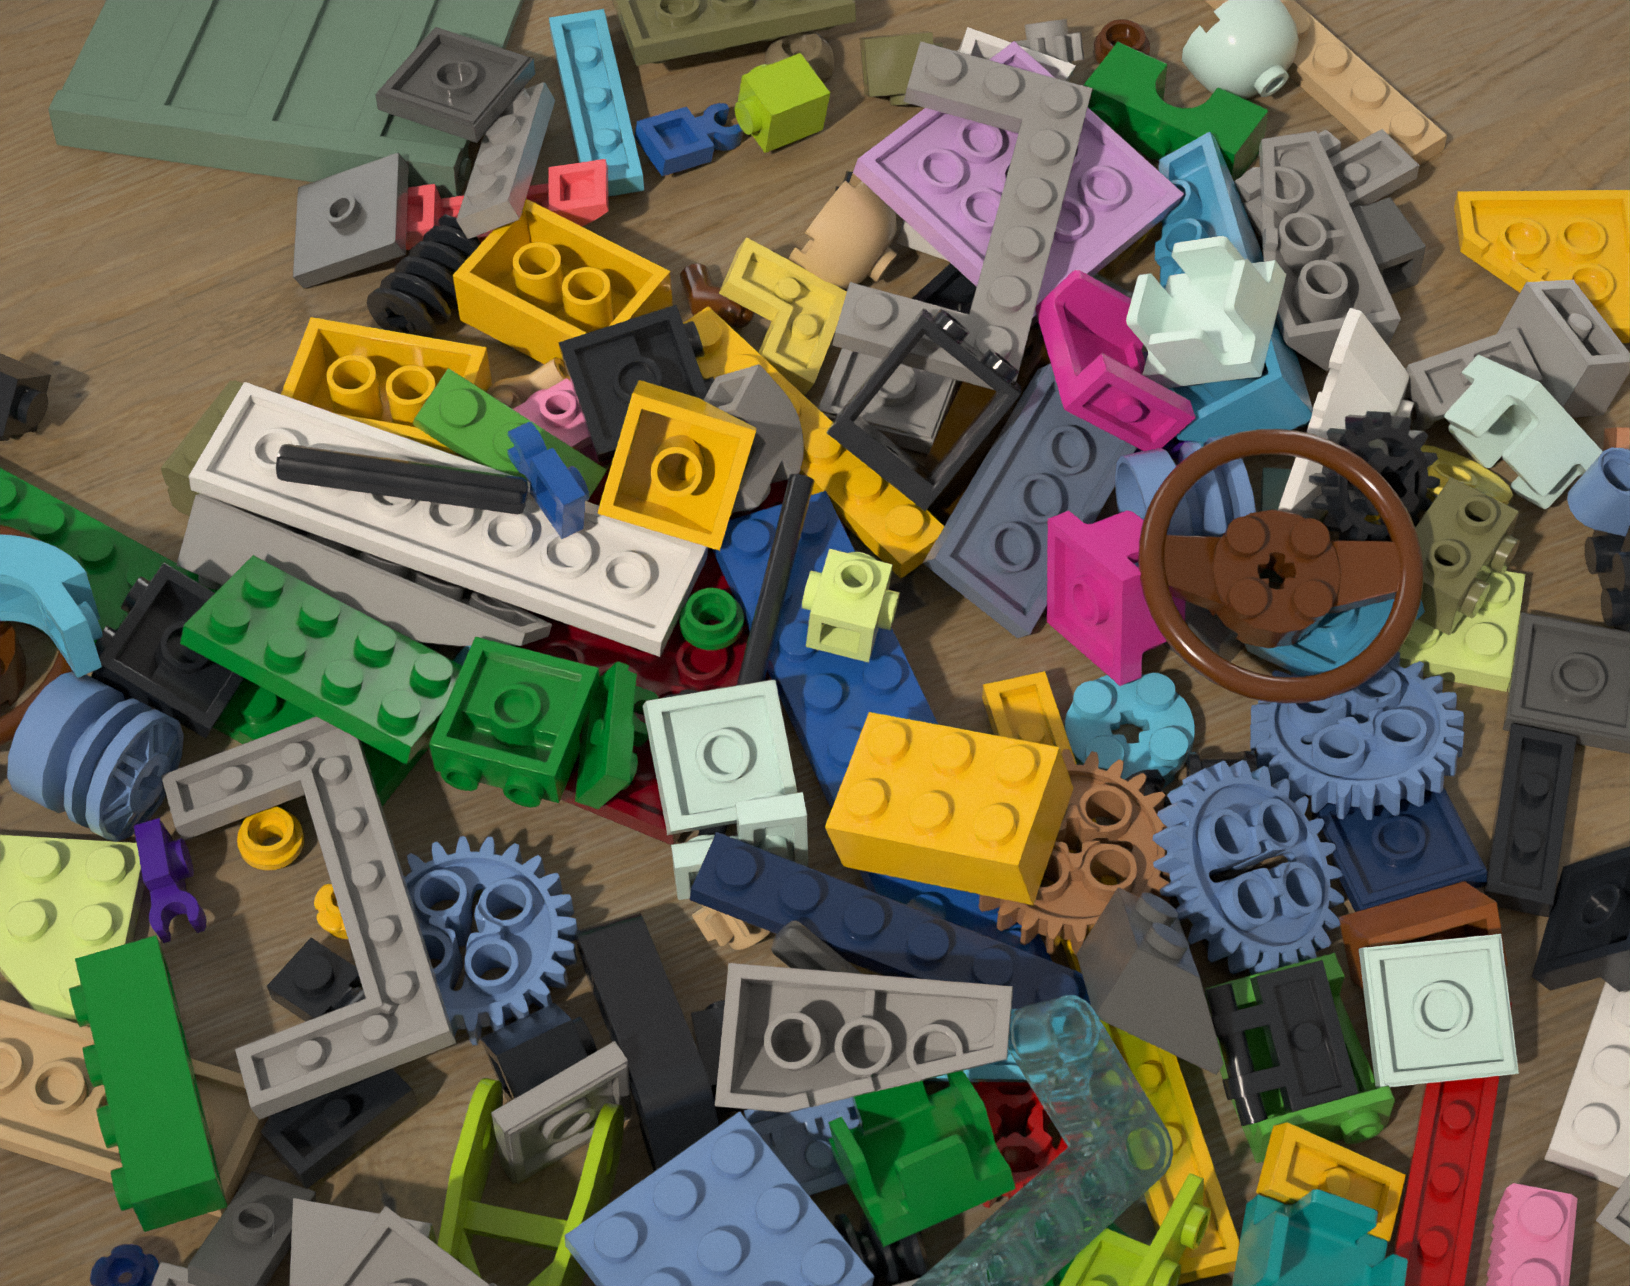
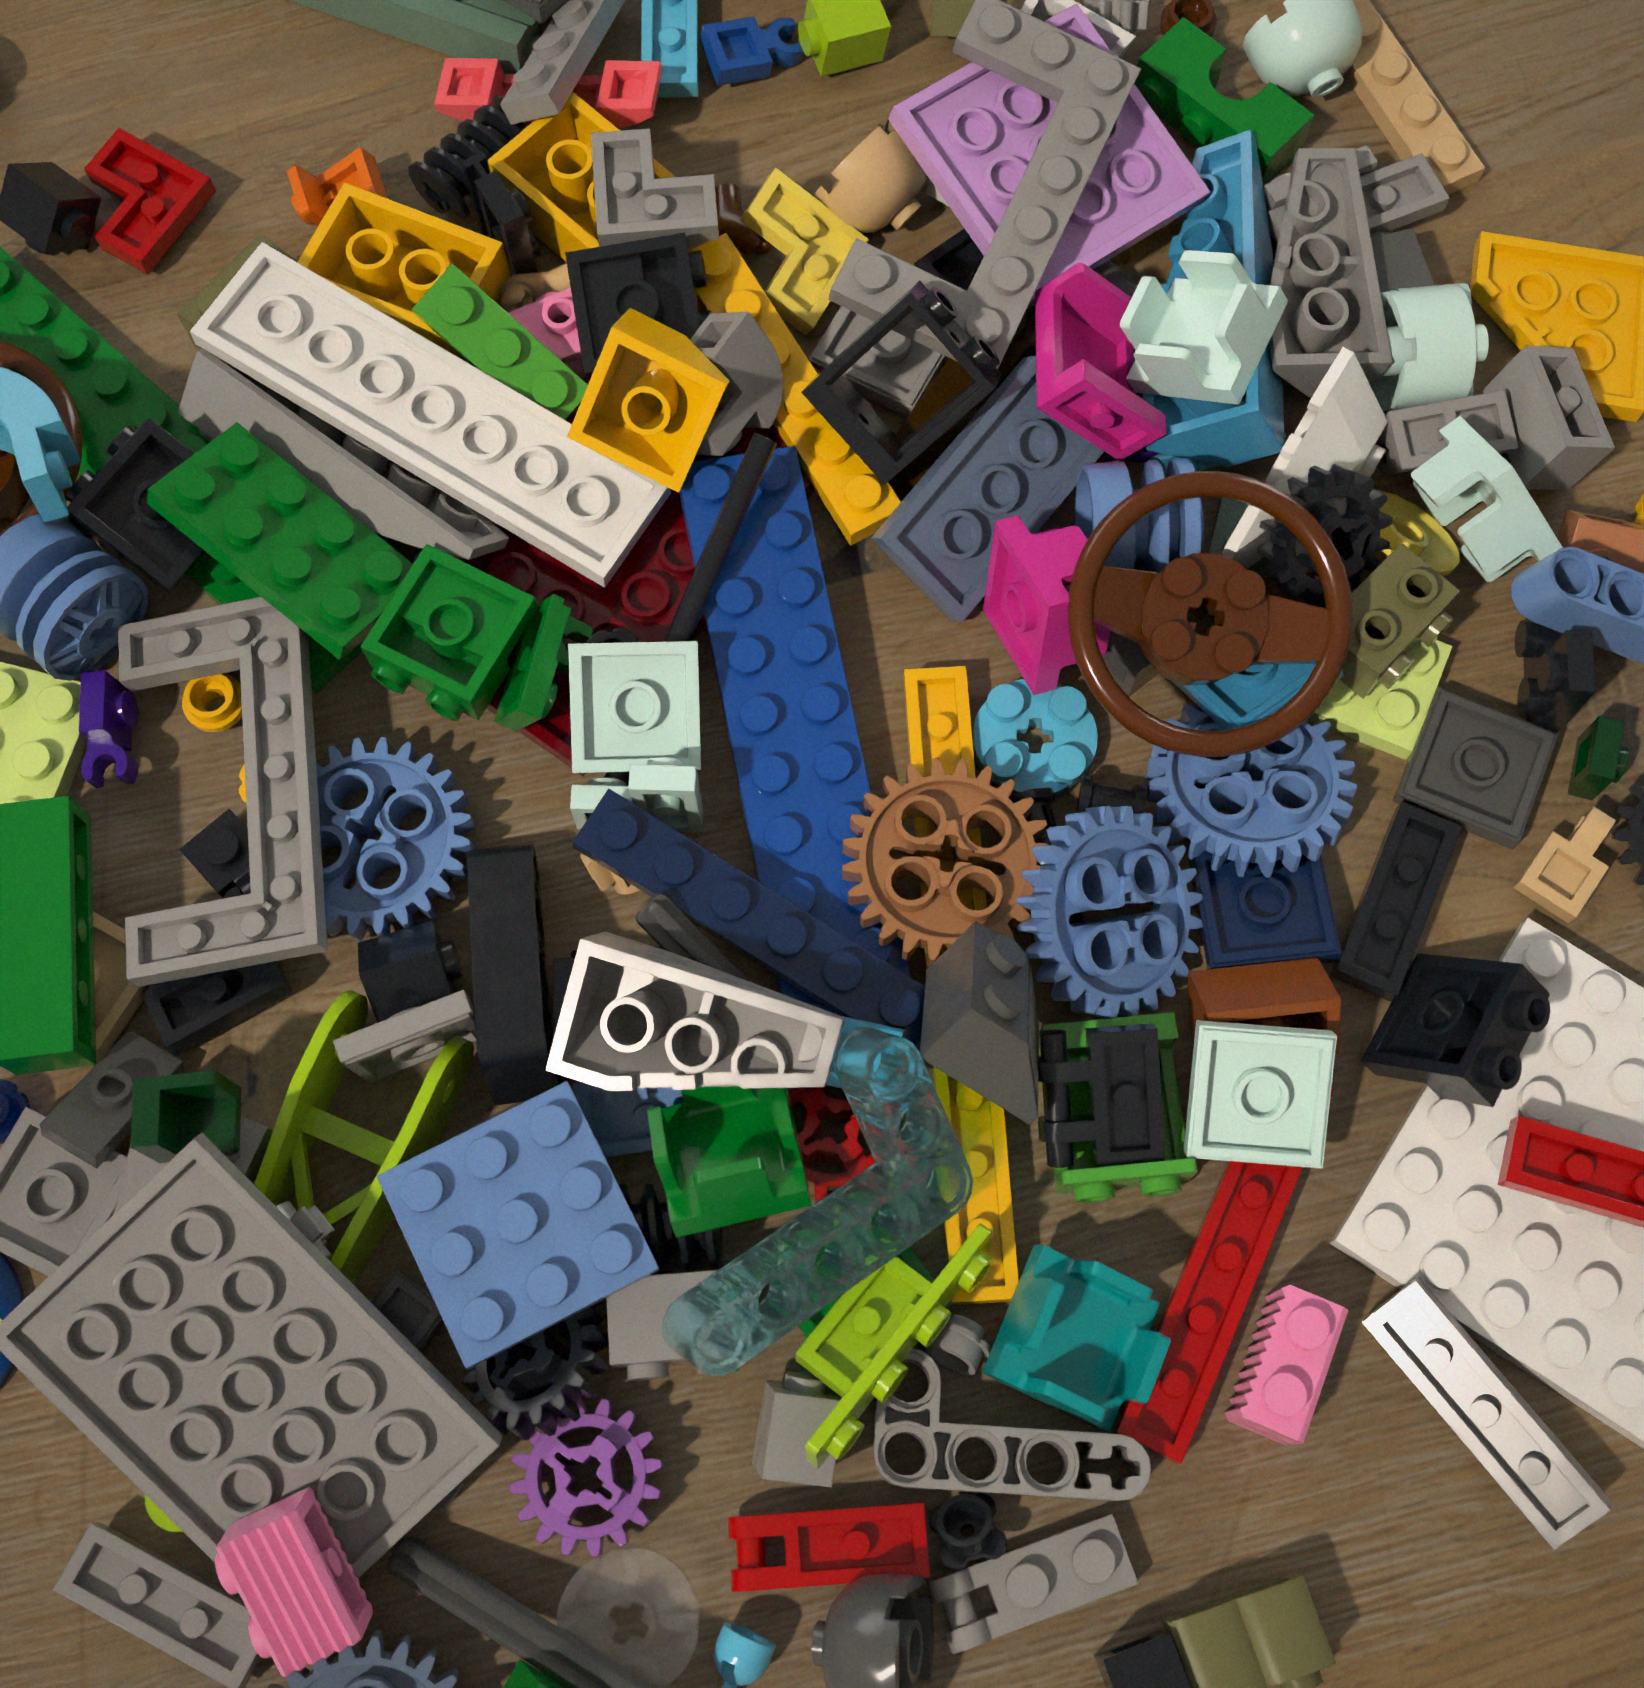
camera: 10 degrees right, 15 degrees up
(104, 366) = (157, 198): none -> red plate
(280, 339) = (315, 194): none -> orange bracket
(343, 1205) = (181, 1106): none -> dark green panel
(351, 220) = (413, 84): plate -> none
(401, 479) = (388, 369): black axle -> none
(477, 320) = (502, 214): none -> black plate
(555, 488) = (533, 406): blue plate -> none
(617, 289) = (638, 206): none -> light grey plate
(711, 605) = (656, 544): green plate -> none
(849, 604) = (785, 575): yellowish green brick -> none
(950, 807) = (834, 806): yellow brick -> none
(1305, 1162) = (1108, 1232): yellow plate -> none
(1435, 297) = (1430, 346): none -> light aqua brick

